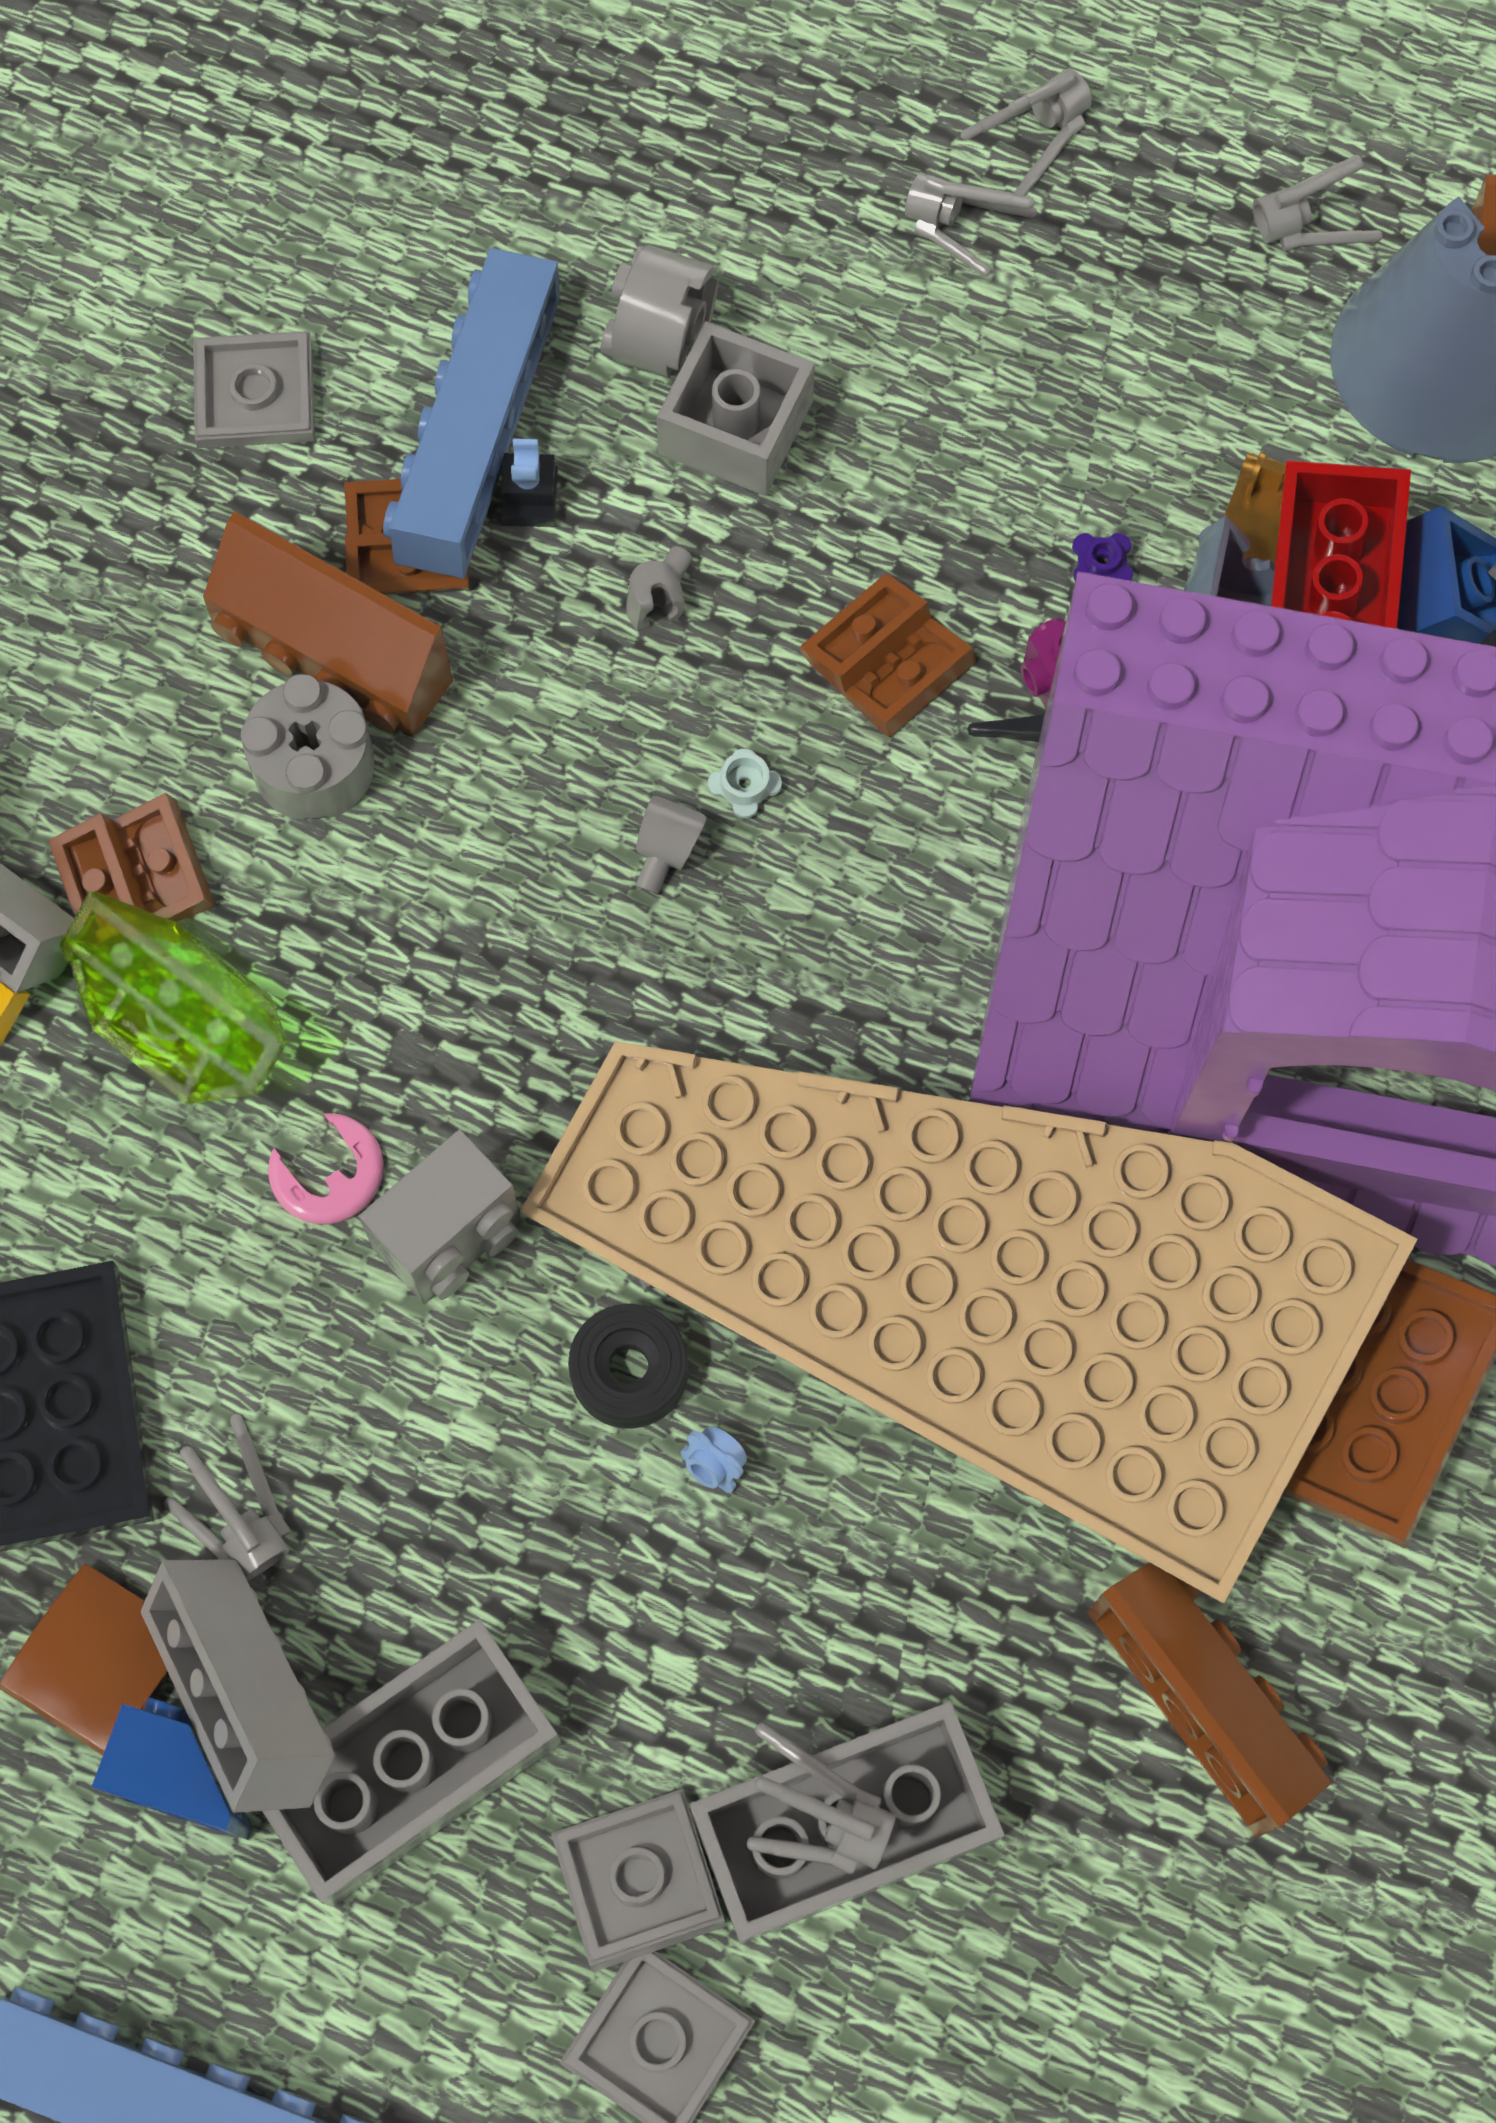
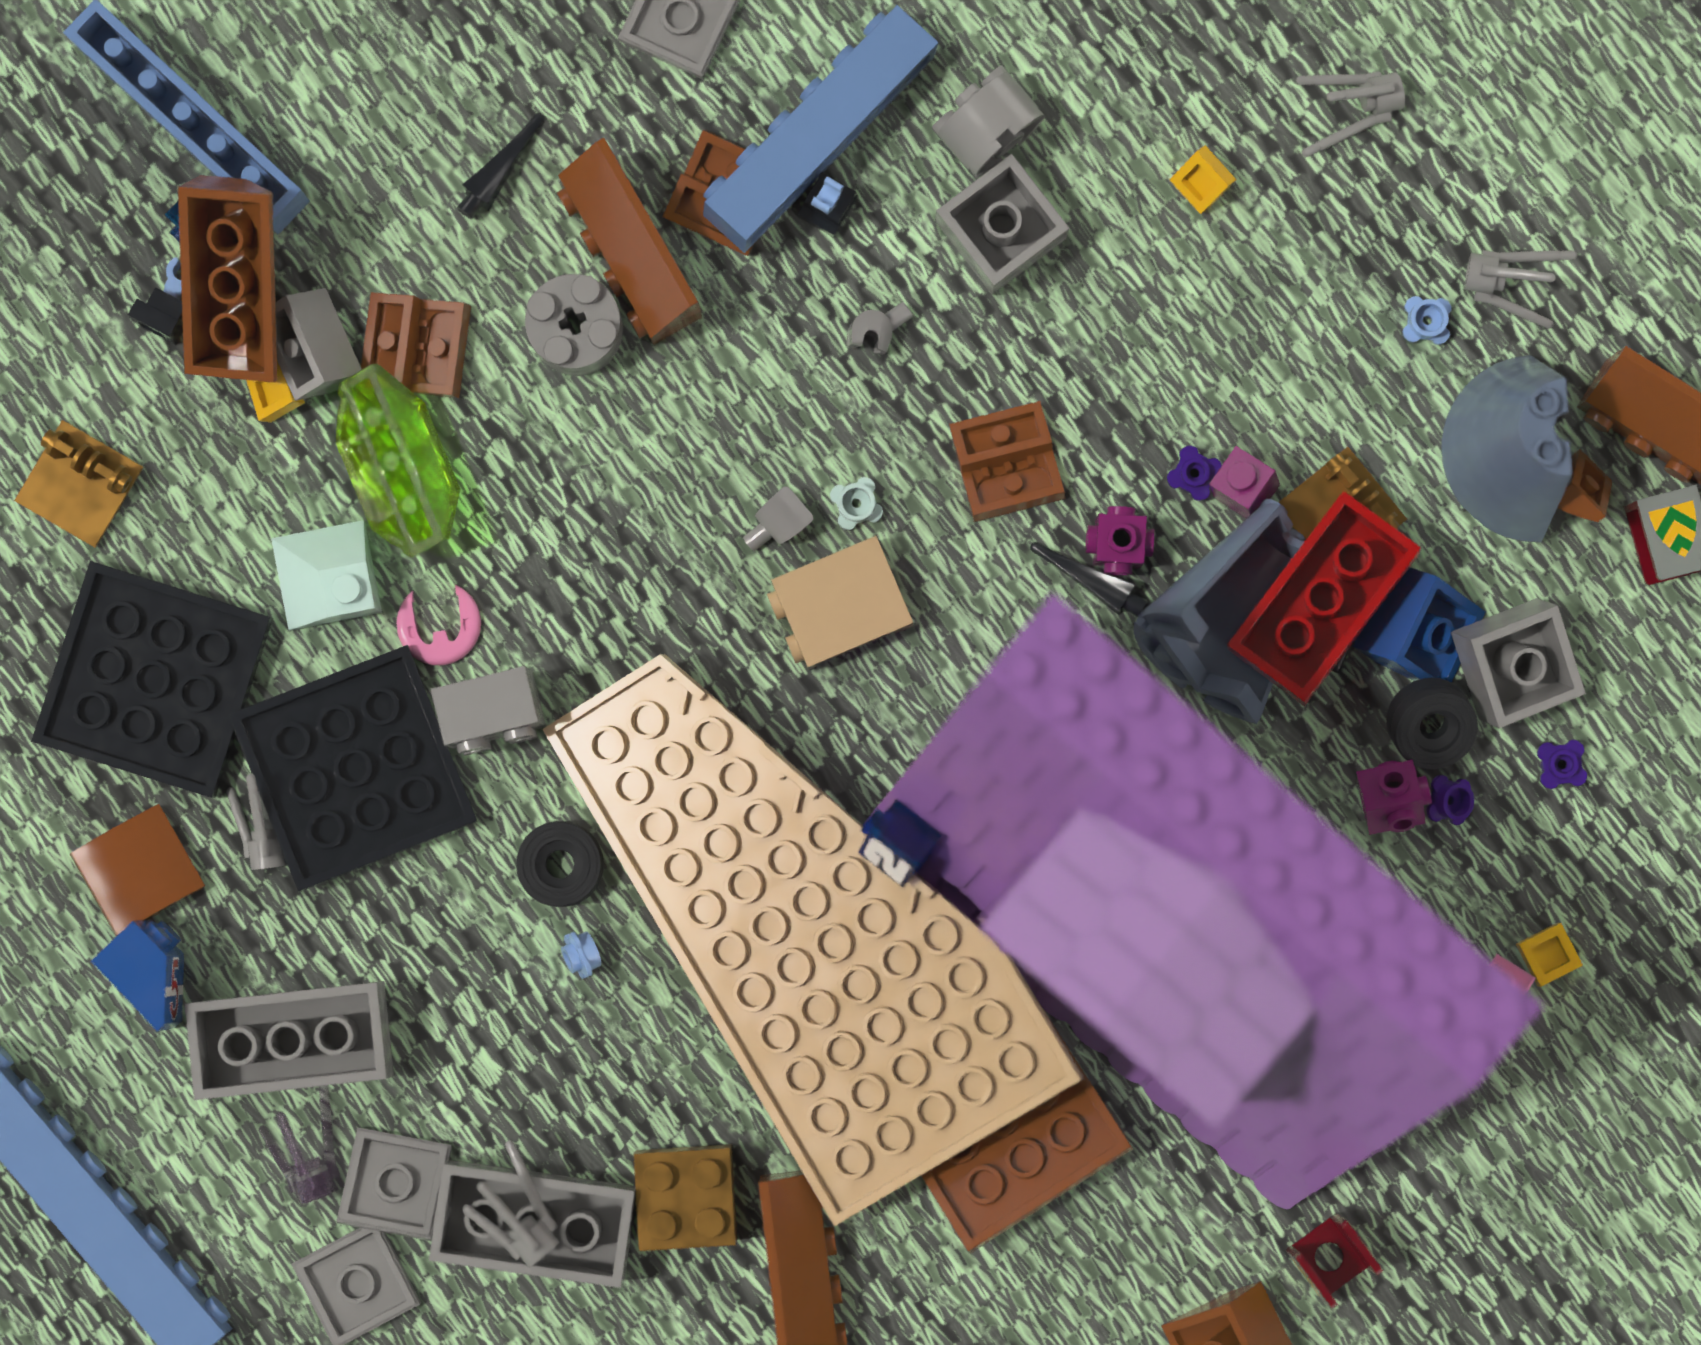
camera: 30 degrees right, 15 degrees up
(125, 655) = (488, 181): none -> black piece
(159, 1184) = (326, 575): none -> light aqua slope
(236, 1686) = (208, 942): light grey brick -> none
(310, 1387) = (352, 768): none -> black plate
(524, 1931) = (306, 1177): none -> plant
(790, 892) = (839, 603): none -> tan panel
(925, 267) = (1202, 179): none -> yellow plate
(939, 202) = (1244, 130): light grey plant -> none
(1015, 1683) = (685, 1197): none -> pearl gold brick
(1030, 1082) = (898, 842): none -> clear blue brick
(1165, 535) = (1244, 482): none -> magenta brick
(1252, 275) = (1435, 309): none -> light blue plate

